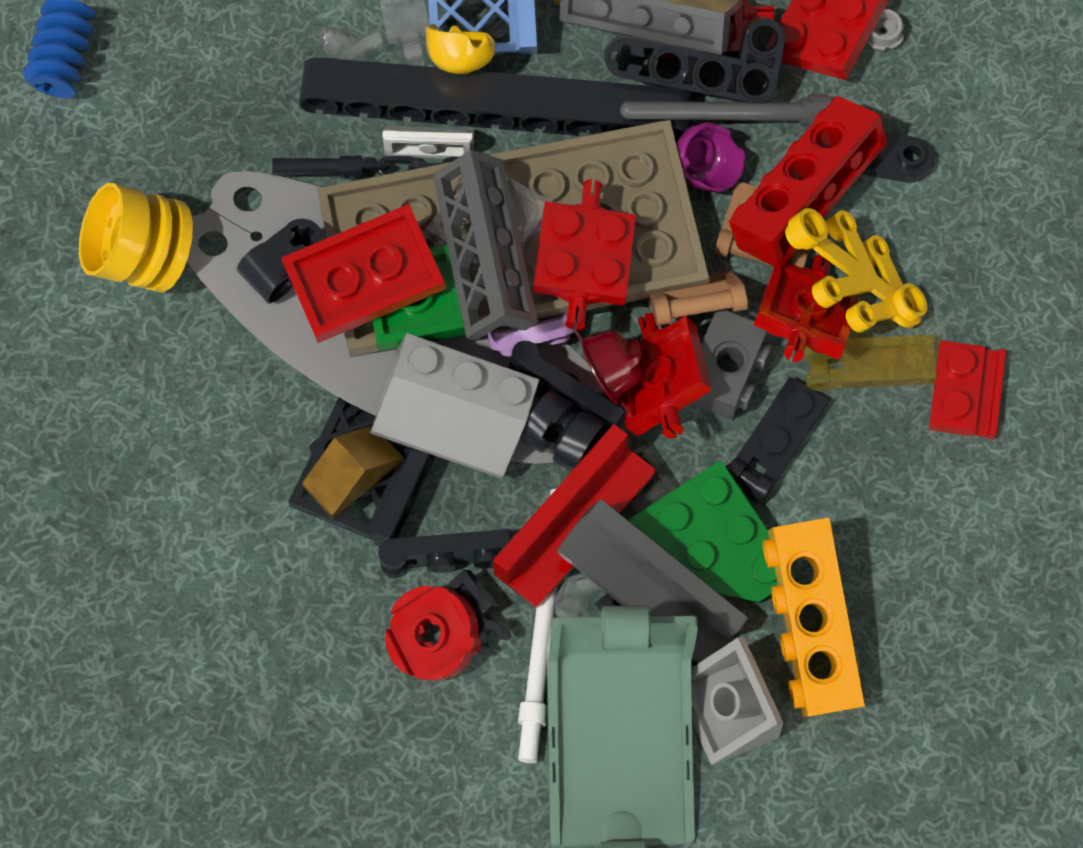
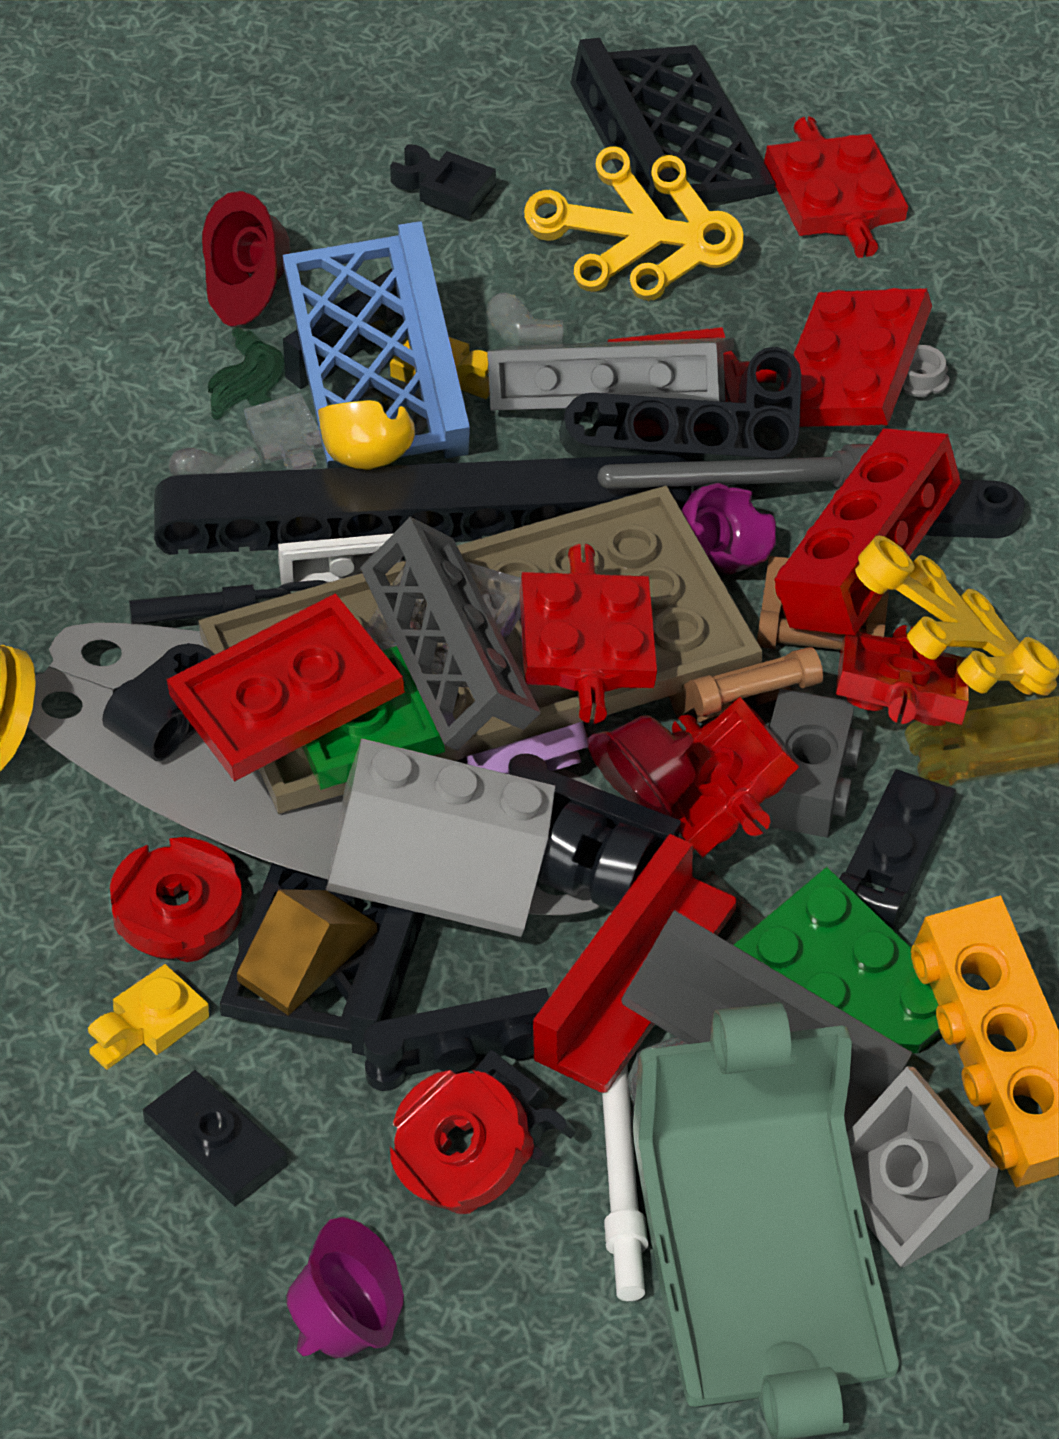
camera: 10 degrees left, 20 degrees down
(244, 496) = (149, 1012): none -> yellow plate
(268, 385) = (183, 929): none -> red plate
(272, 599) = (215, 1137): none -> black plate
(340, 734) = (346, 1292): none -> magenta piece

